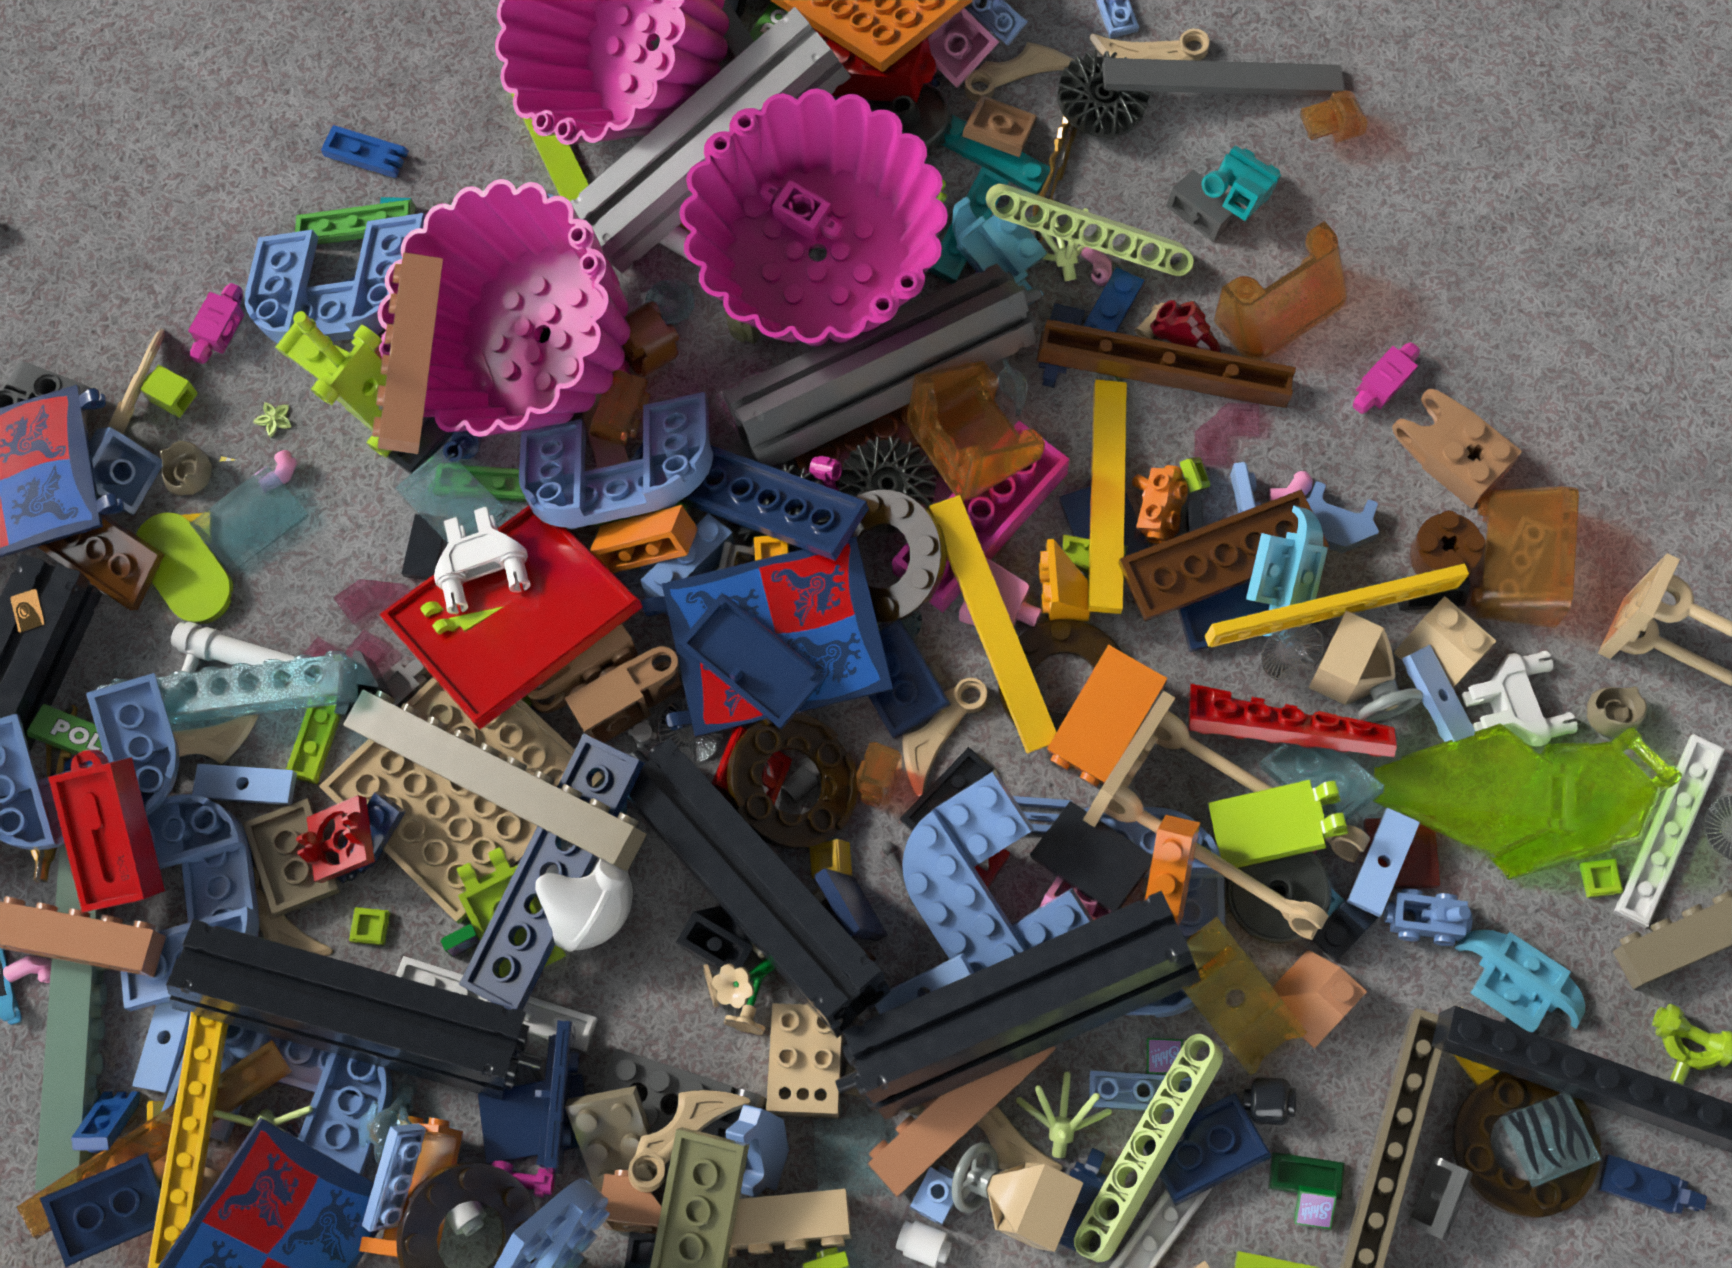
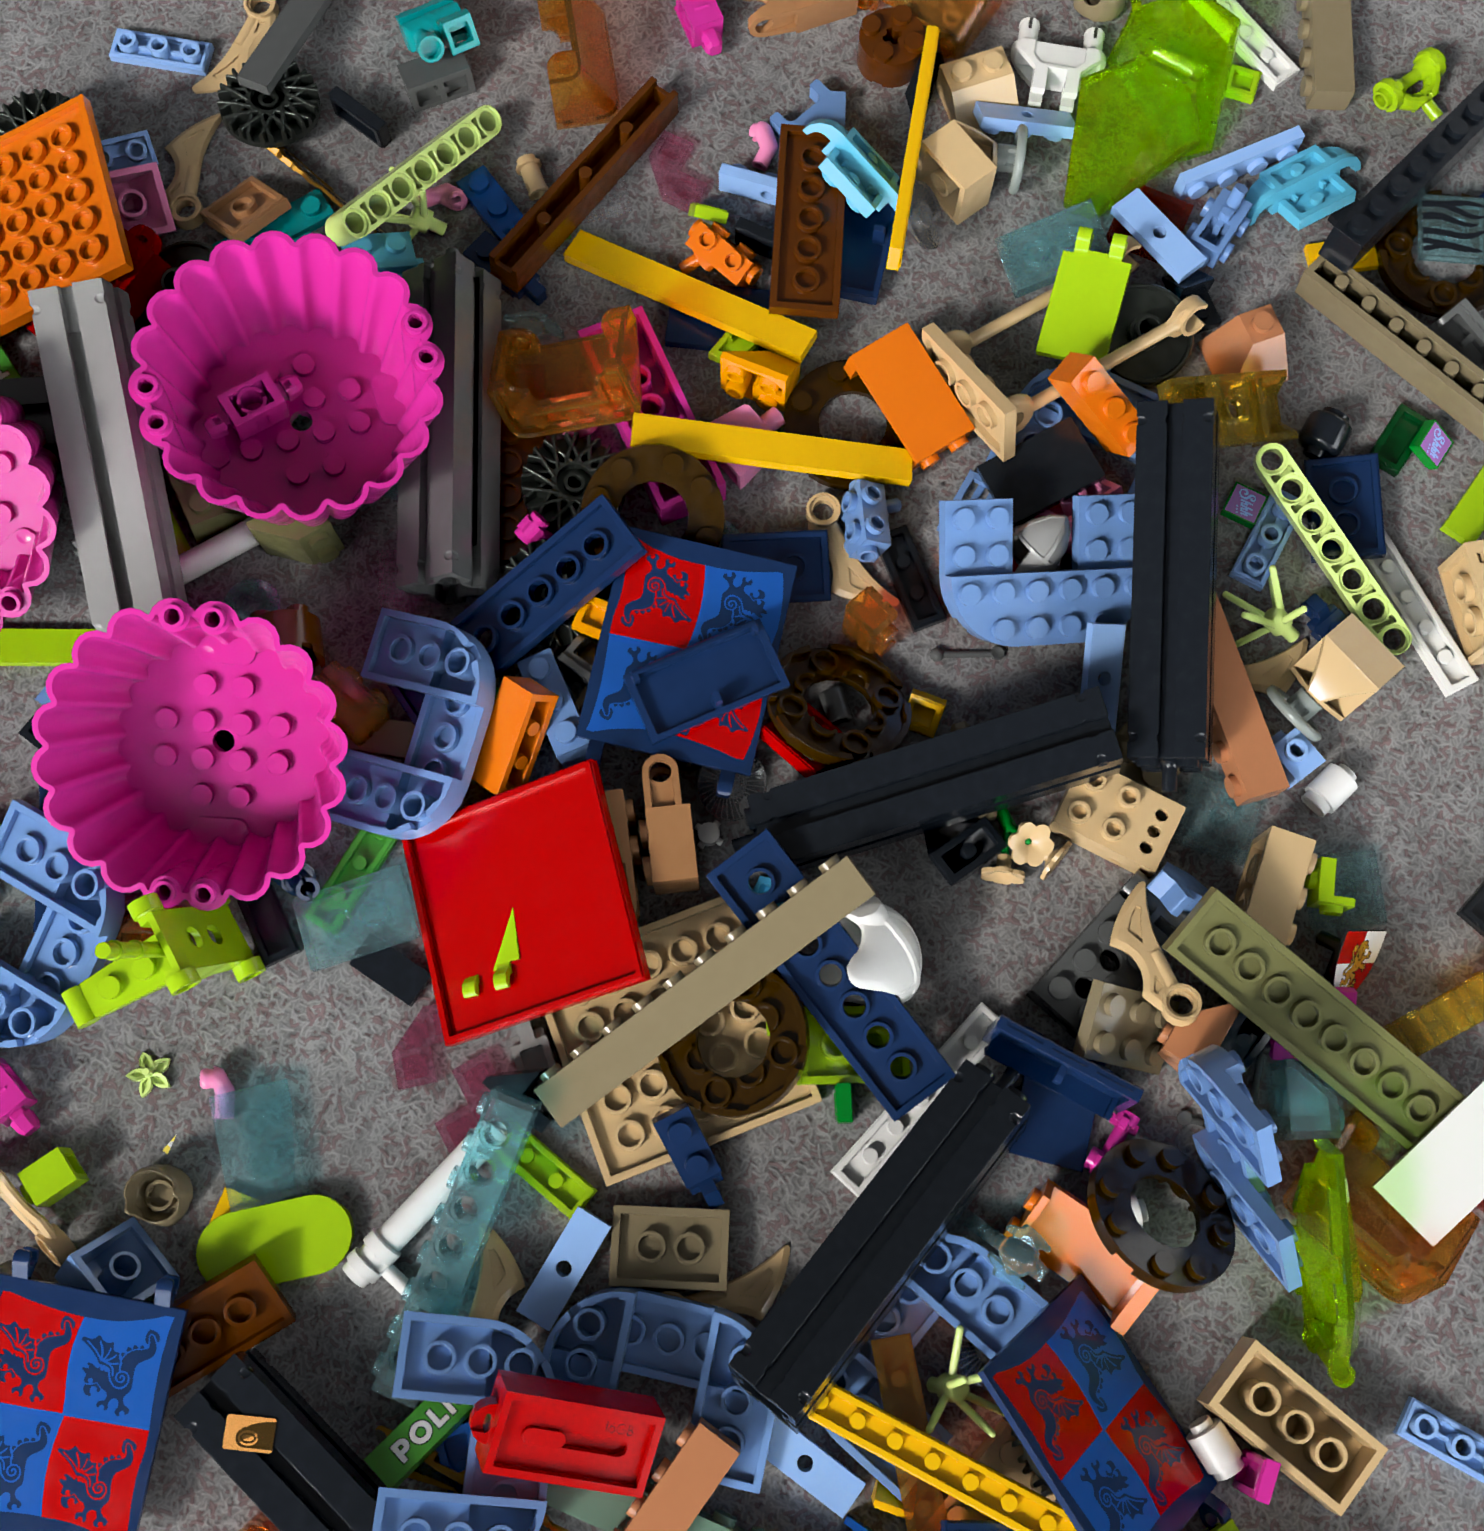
camera: 70 degrees left, 5 degrees up
(358, 835) = (687, 1158): red piece -> none
(369, 926) = (781, 1195): lime tile -> none
(394, 1177) = (1072, 1265): light blue tile -> none
(409, 353) = (188, 868): nougat brick -> none
(453, 868) = (765, 1084): none -> dark brown plate
(477, 556) = (444, 908): white connector -> none
(850, 905) = (995, 703): dark blue tile -> none
(980, 729) = (866, 520): none -> medium blue brick
(1018, 884) = (1041, 543): none -> light grey helmet
(1132, 166) = (360, 117): none -> black tile
(1184, 326) = (556, 146): dark red rock -> none
(1217, 713) = (990, 254): red wing -> none
(1519, 918) = (1228, 168): none -> light blue plate

